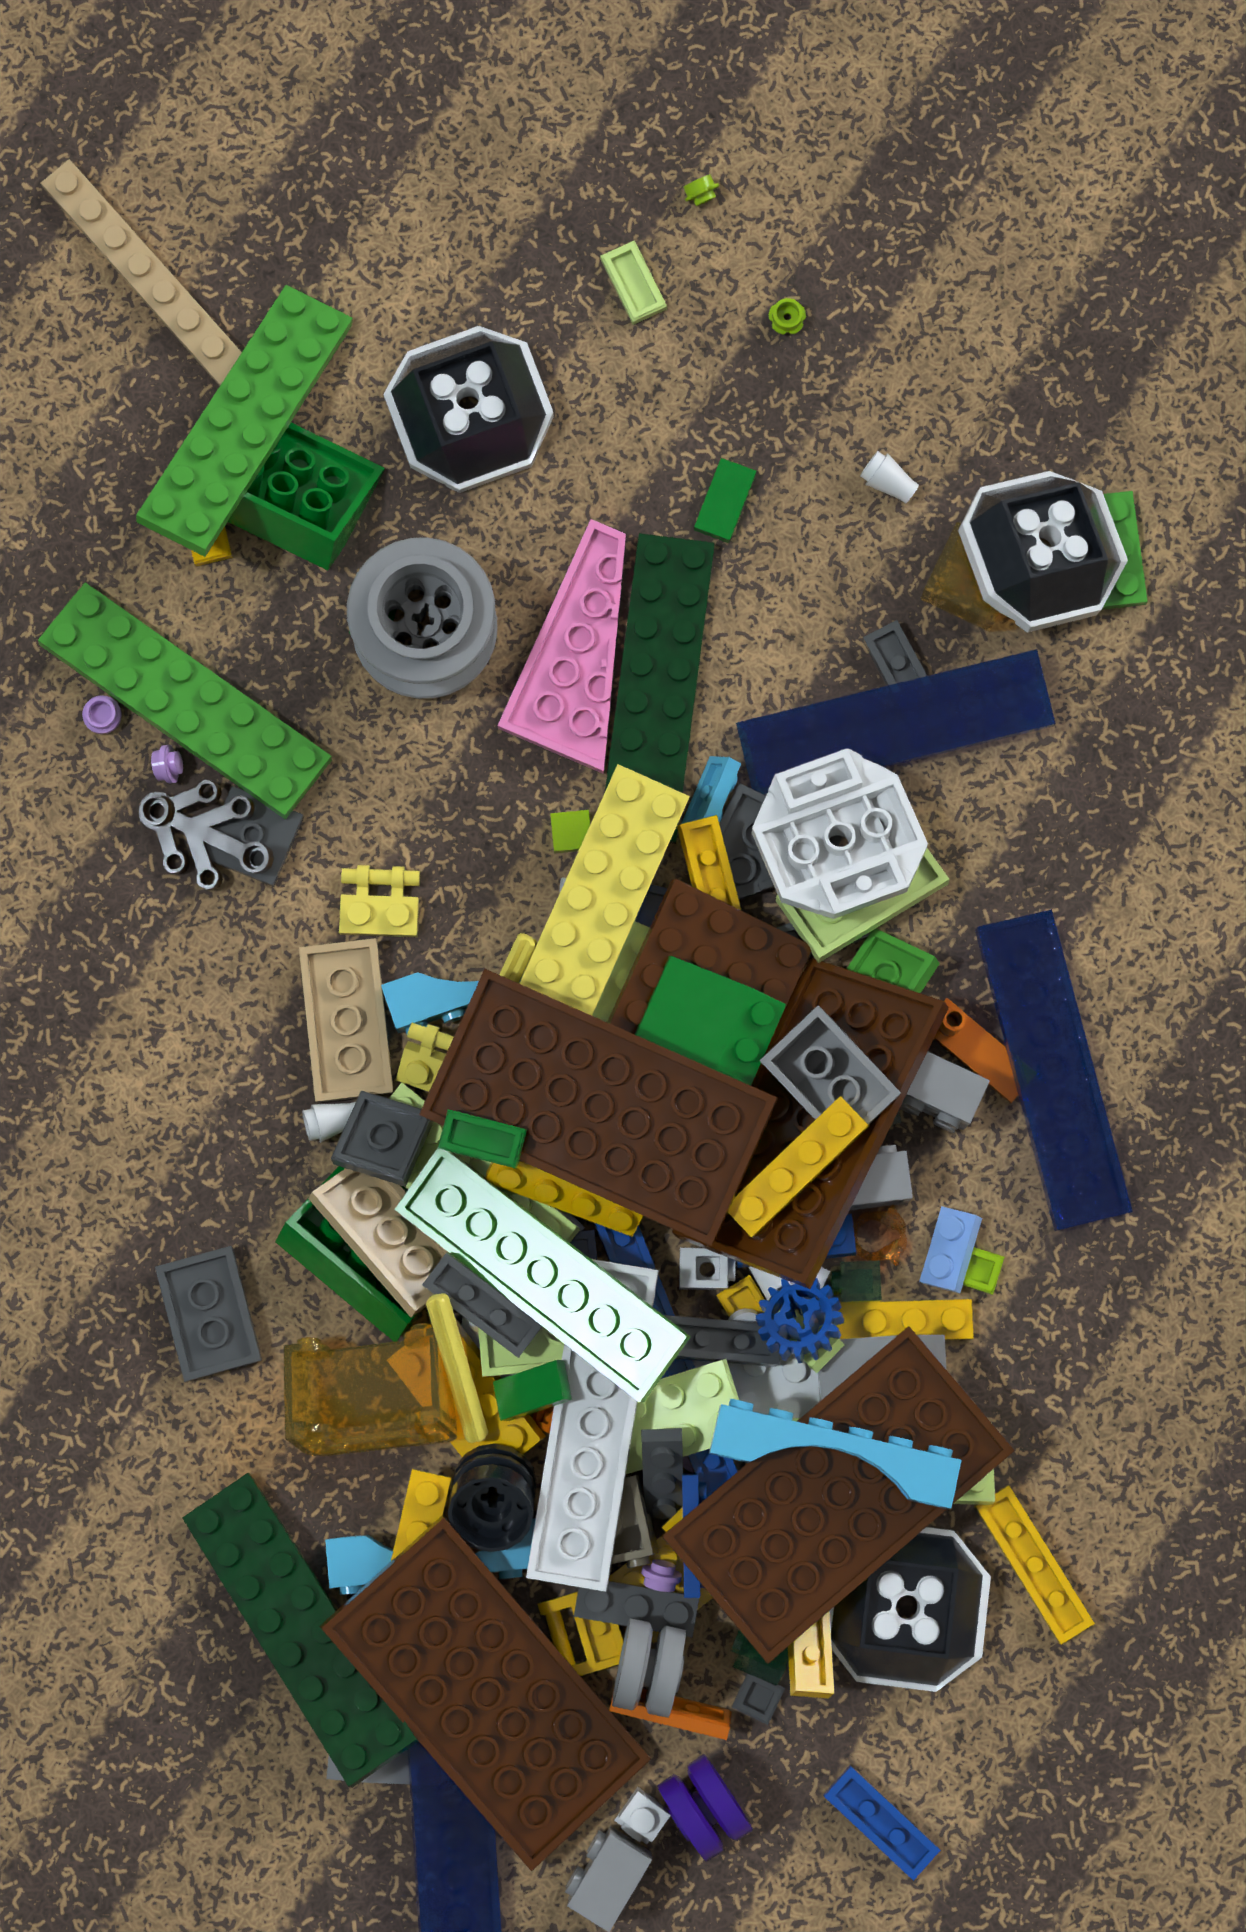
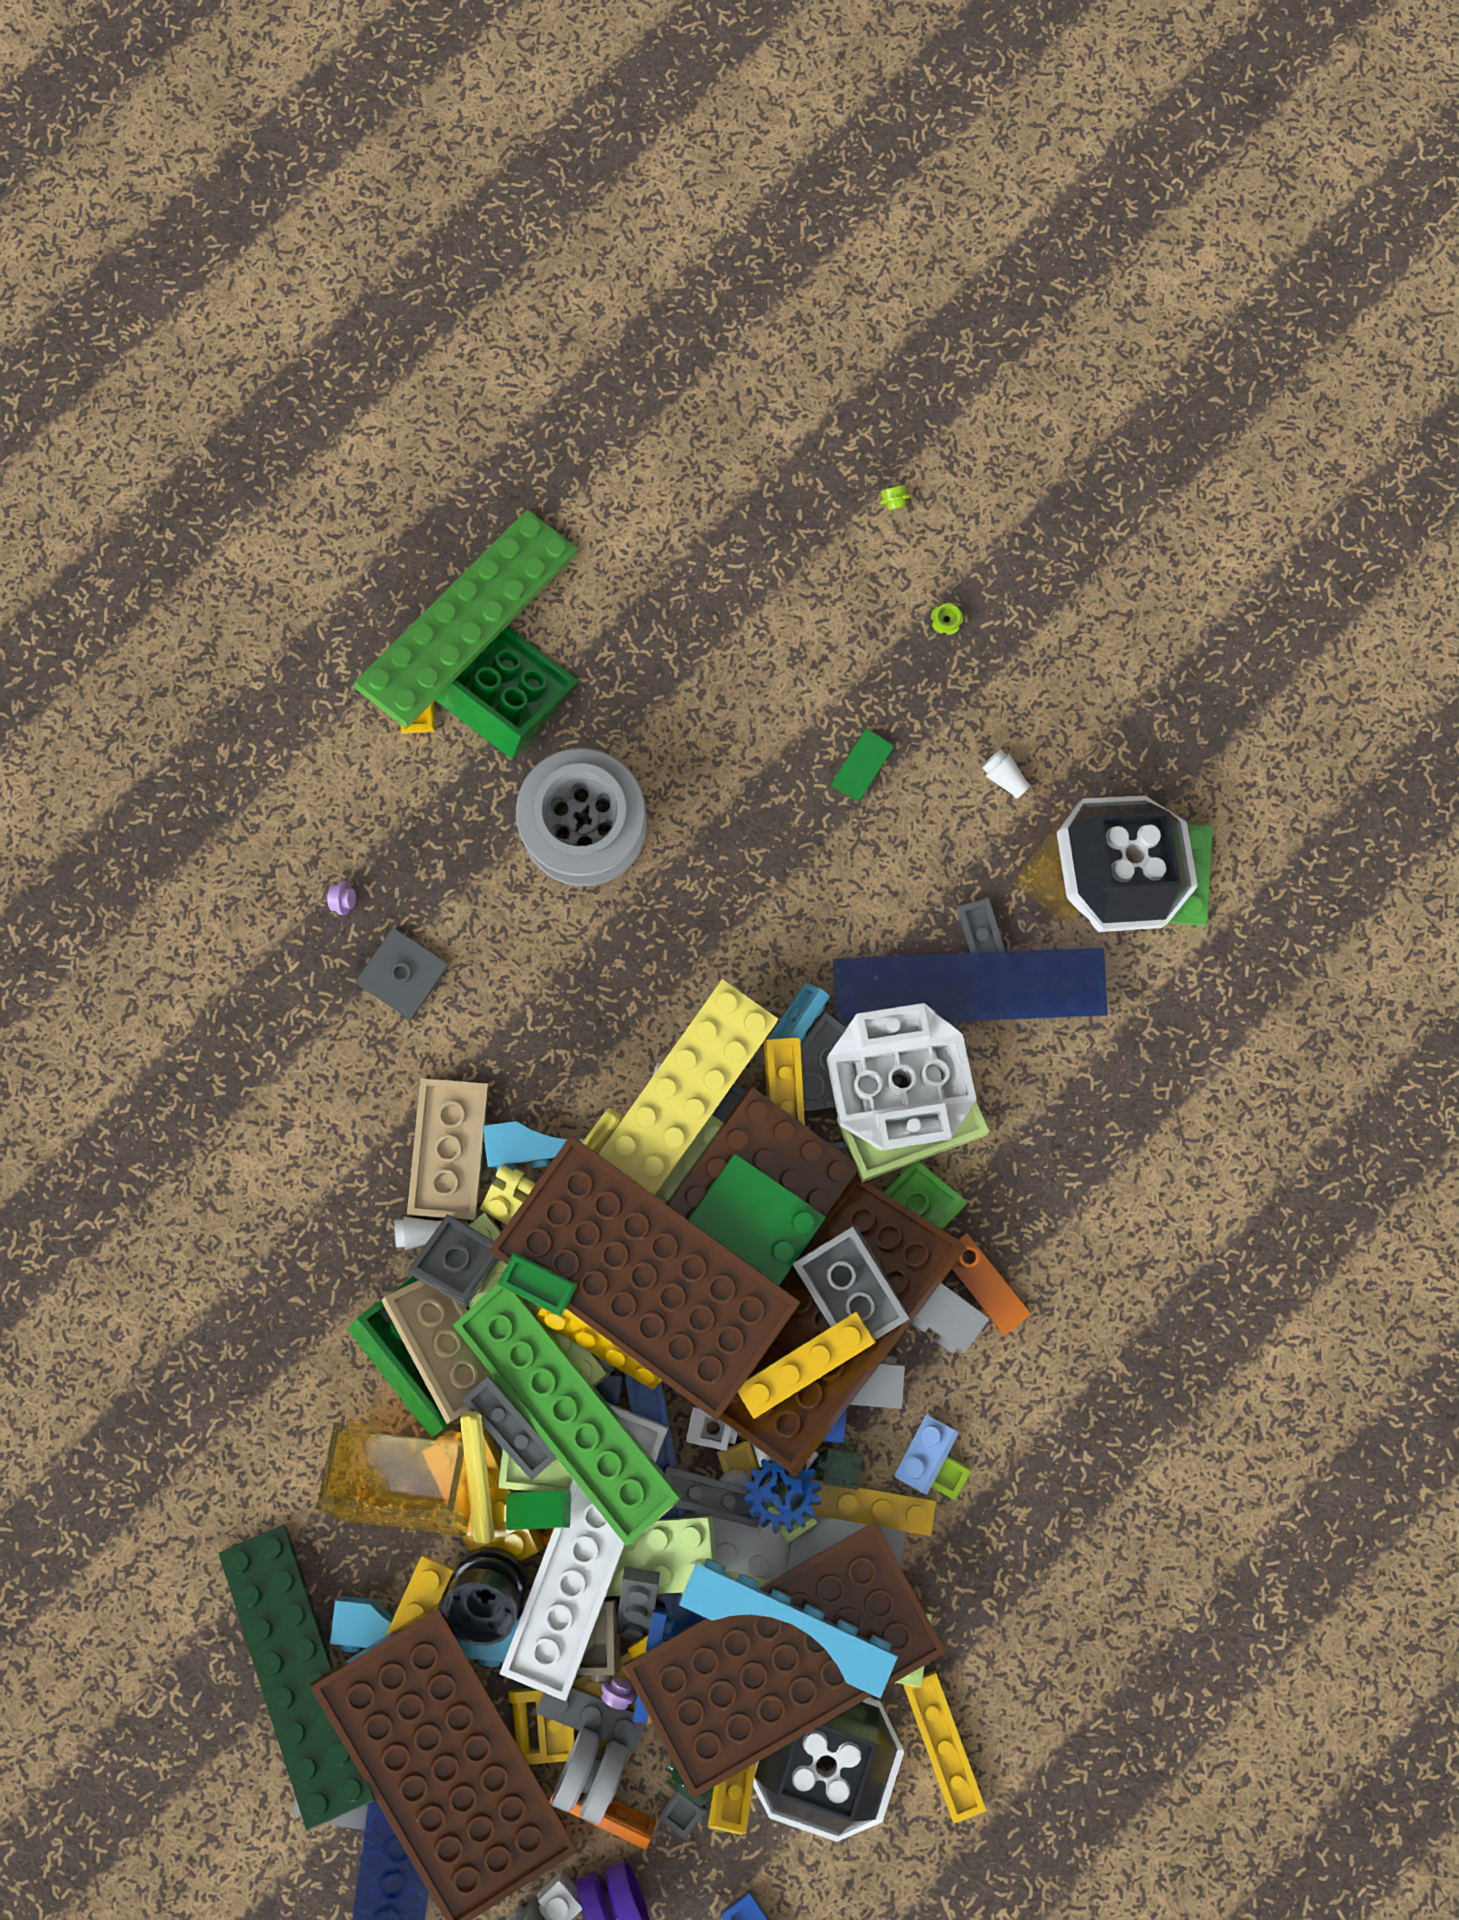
camera: 10 degrees right, 0 degrees up
(101, 714) = (296, 844): lavender plate -> none
(142, 270) = (409, 473): tan plate -> none
(185, 700) = (368, 846): bright green plate -> none
(200, 830) = (357, 961): plant -> none
(208, 1313) = (278, 1380): dark grey plate -> none
(379, 914) = (493, 1062): light yellow plate -> none
(477, 443) = (667, 675): black piece -> none
(569, 672) = (699, 888): bright pink wing -> none
(569, 830) = (672, 1022): lime tile -> none
(633, 282) = (822, 564): yellowish green tile -> none
(661, 659) = (779, 893): dark green plate -> none
(891, 1251) = (874, 1445): clear orange piece -> none
(1053, 1070) = (1046, 1316): clear blue plate -> none

